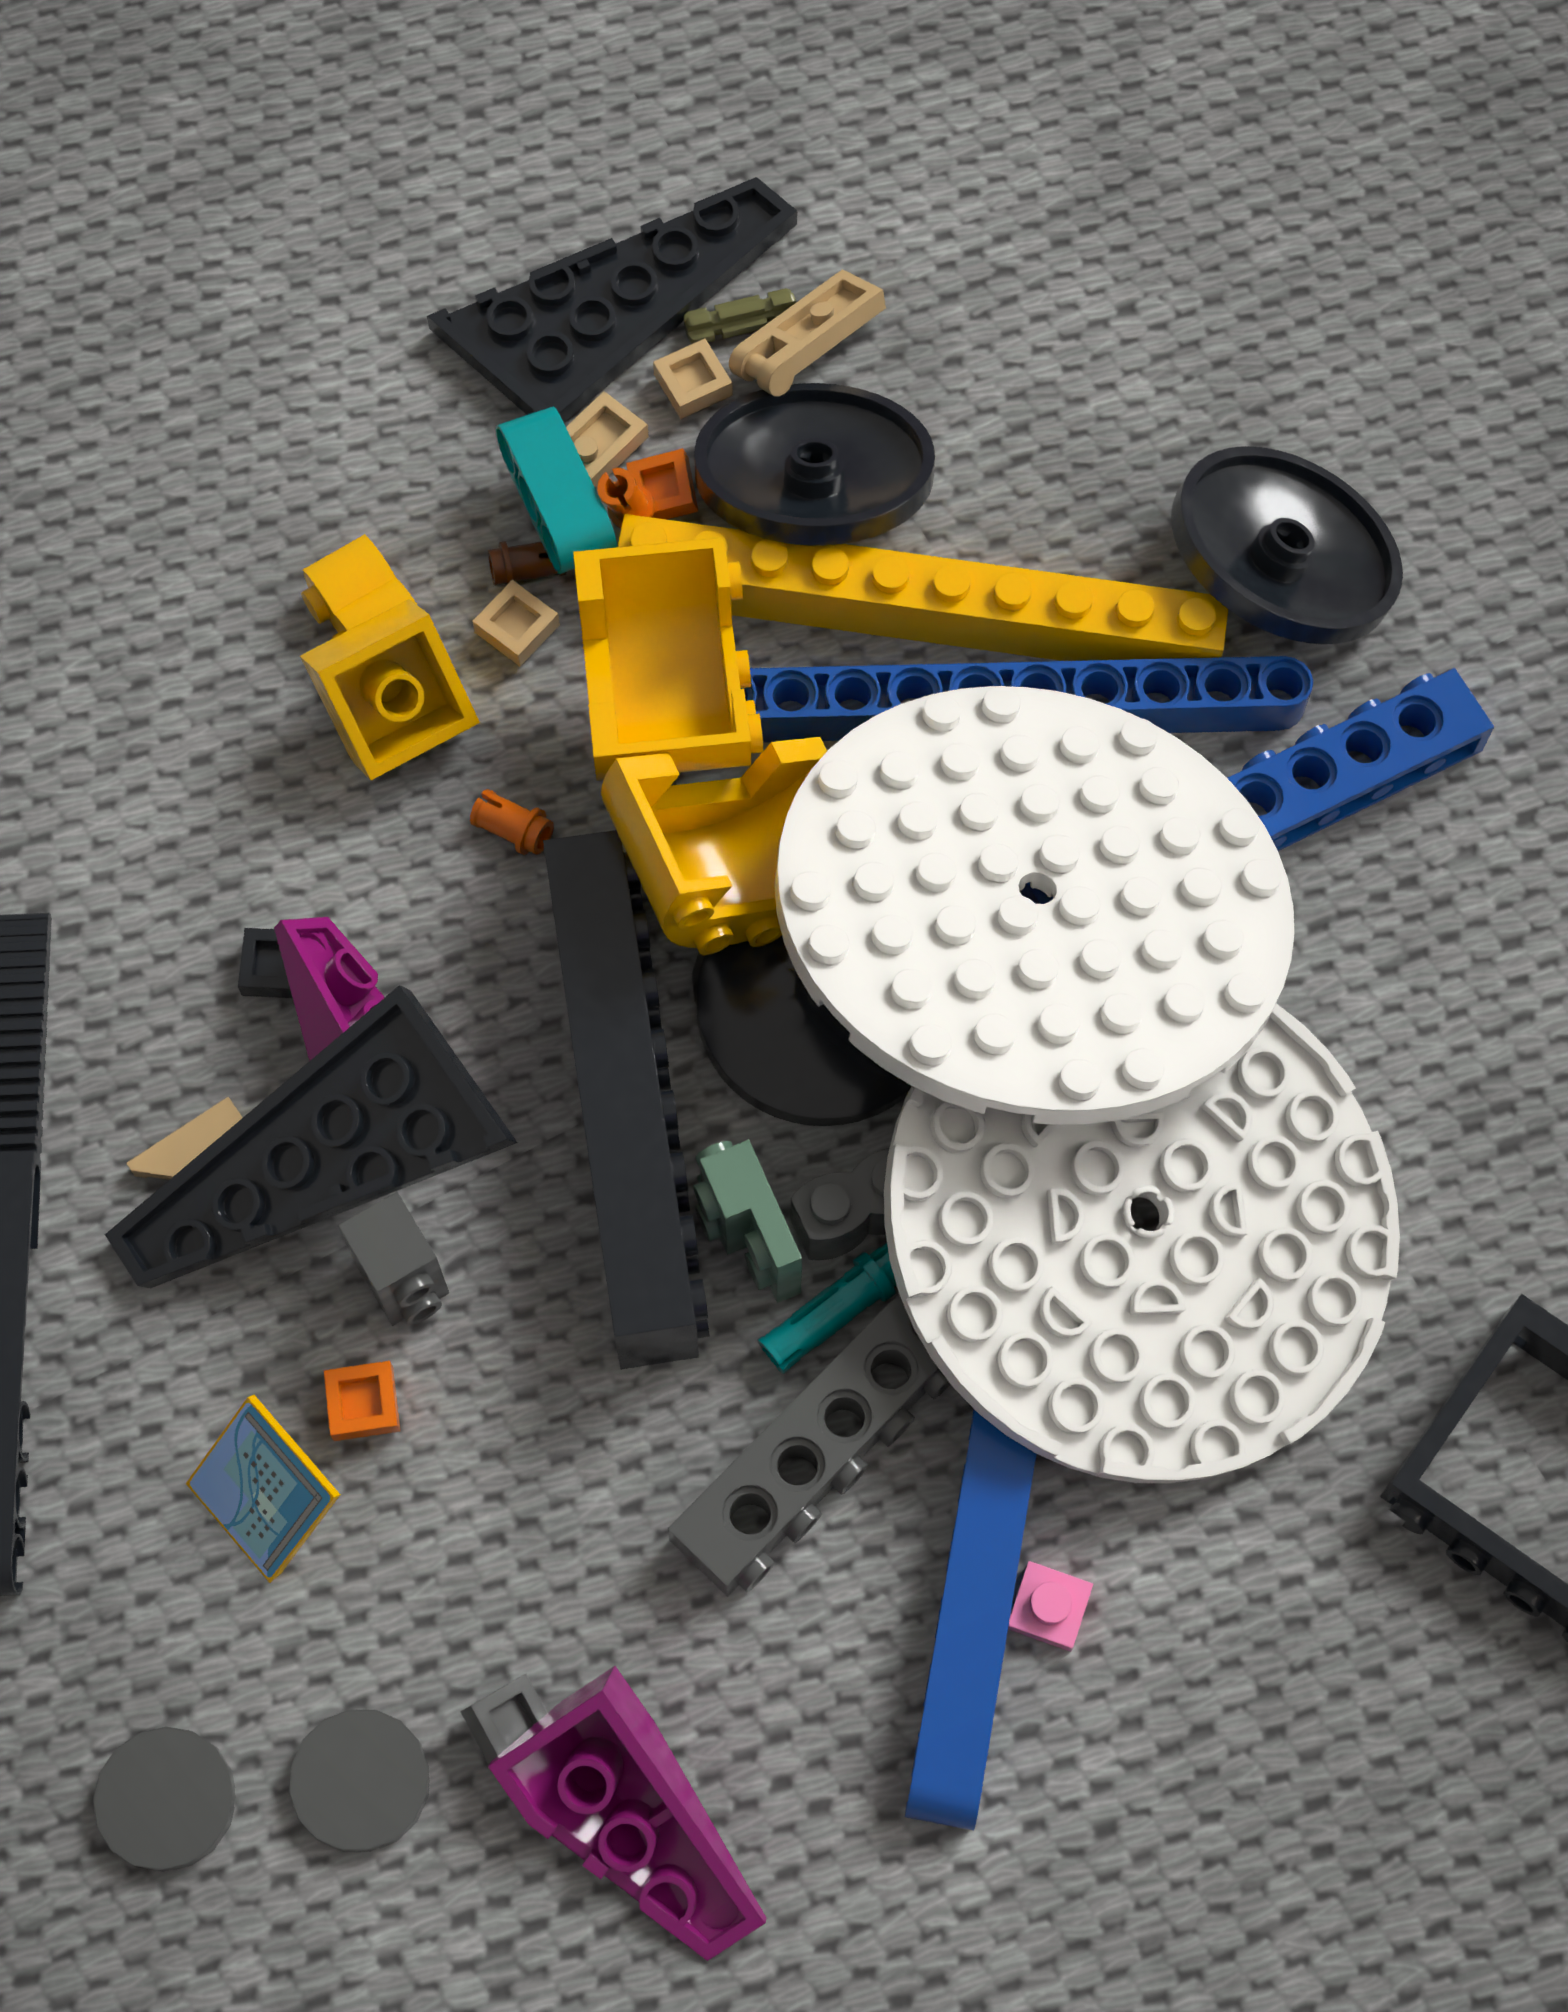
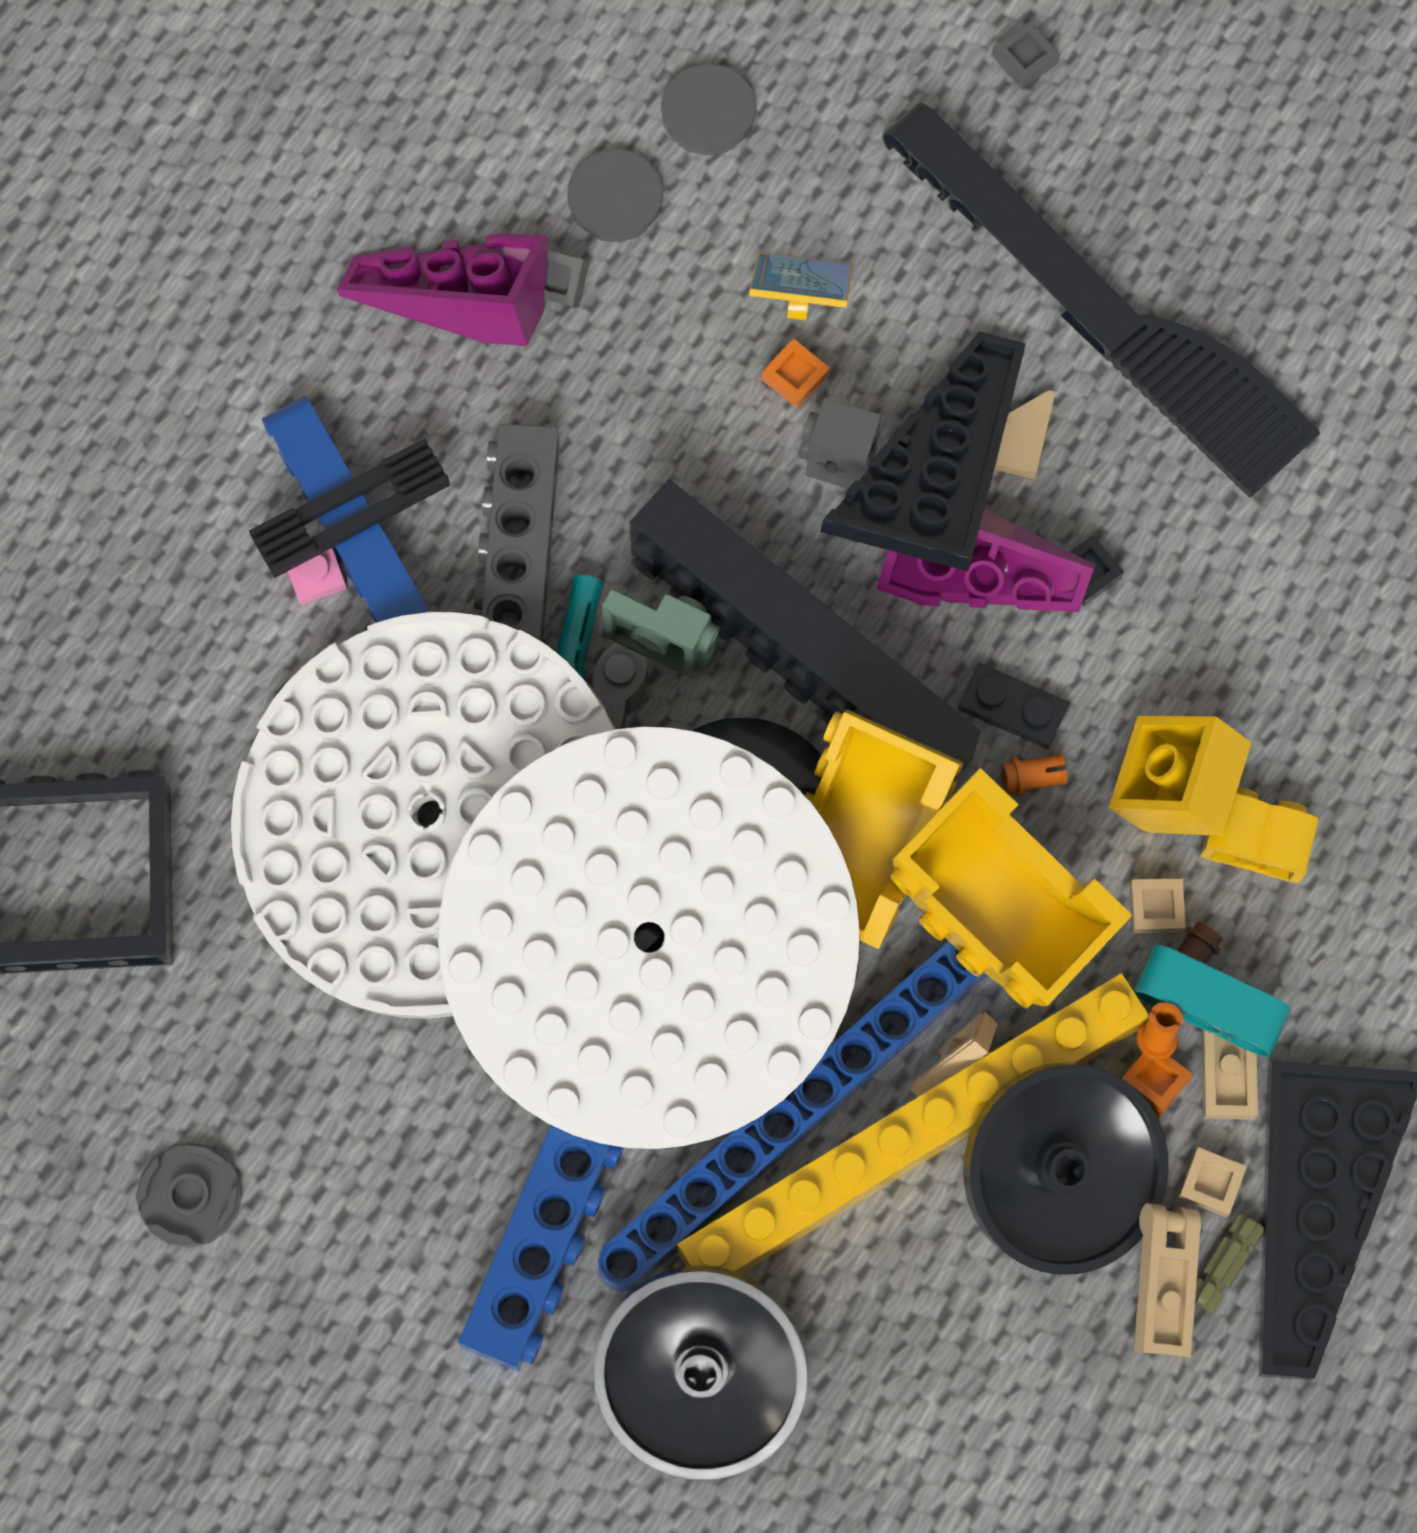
camera: 140 degrees right, 5 degrees up
(468, 901) = (1013, 705): none -> black plate
(815, 632) = (957, 1053): none -> tan tile
(1066, 1634) = (412, 472): none -> black container

